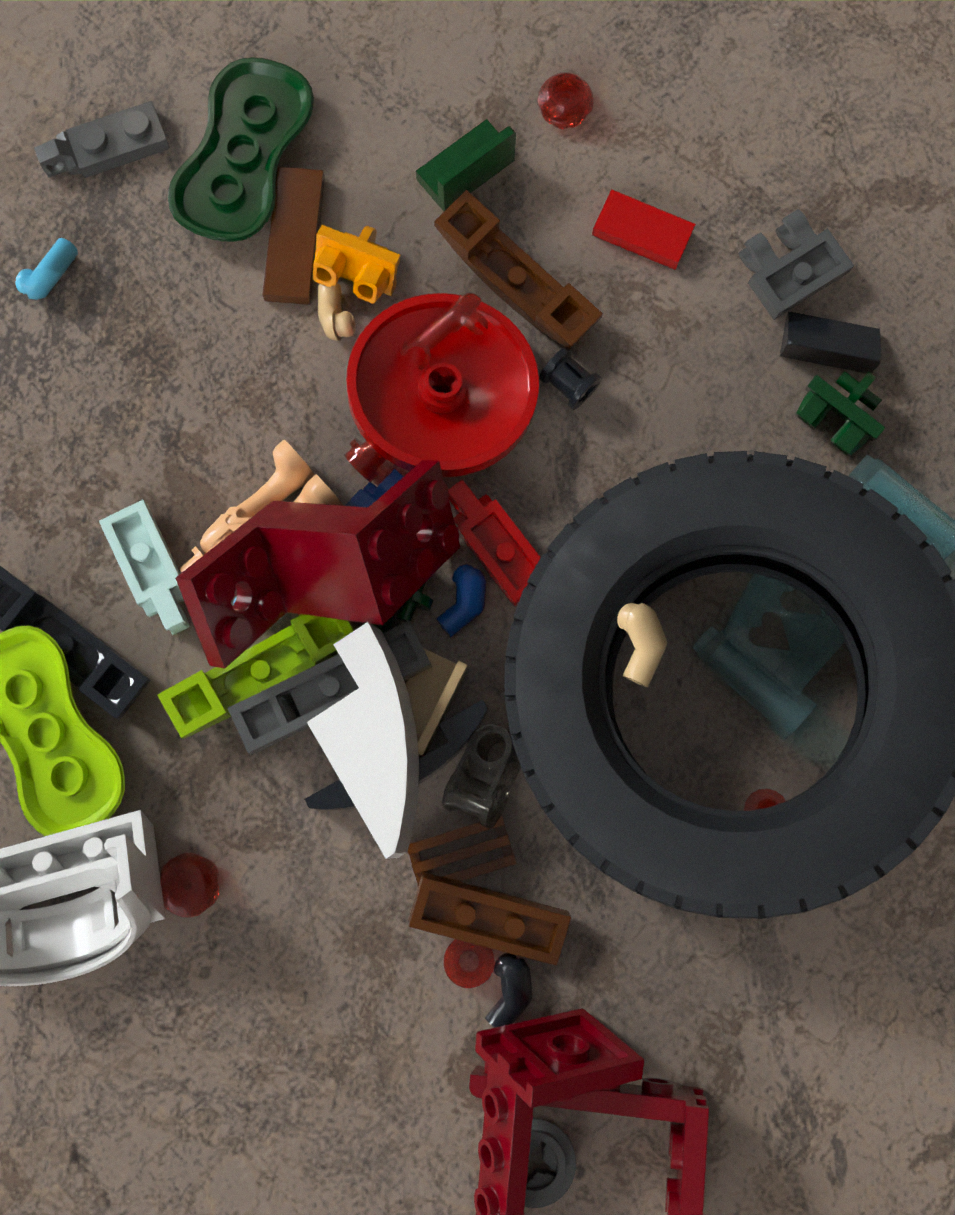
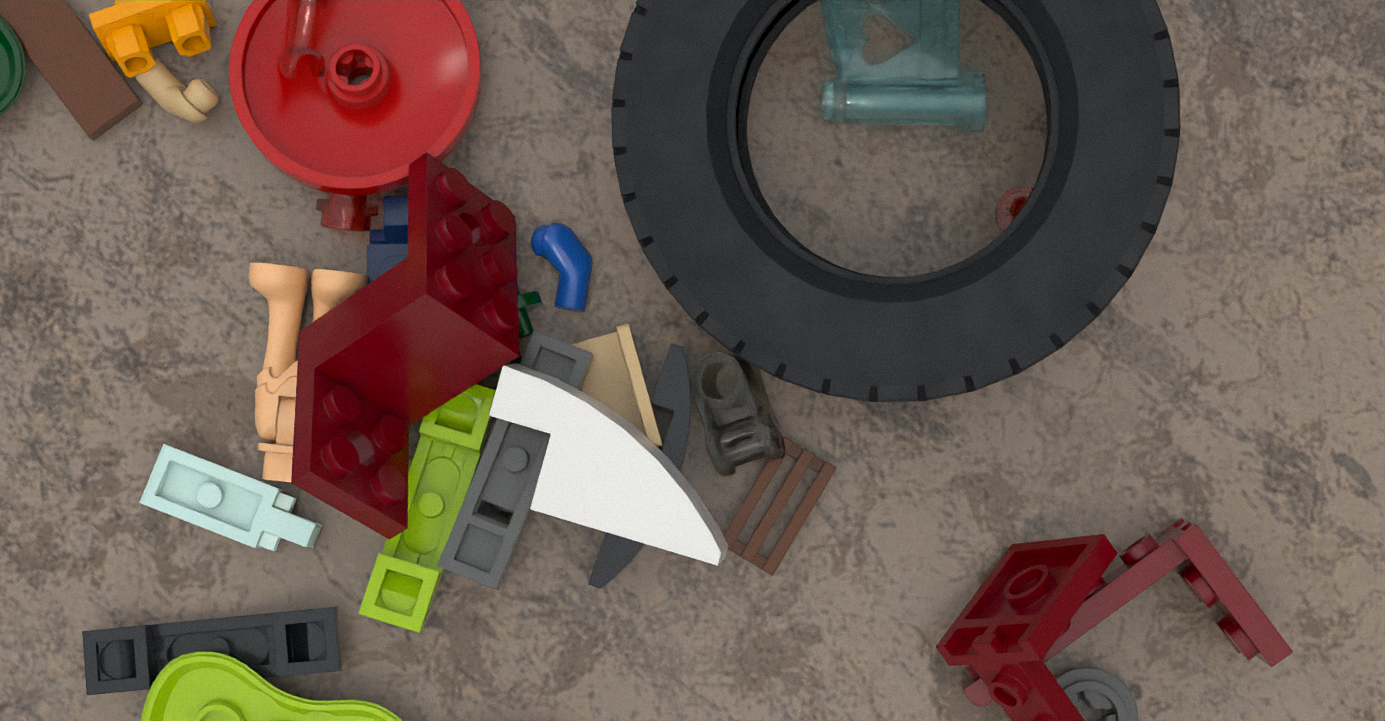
camera: 45 degrees left, 5 degrees up
(463, 977) = (891, 591): clear red plate -> none
(489, 918) = (856, 539): reddish brown plate -> none
(494, 540) = (547, 181): red hinge -> none
(515, 988) = (936, 582): black arm -> none
(648, 639) = (782, 152): tan arm -> none

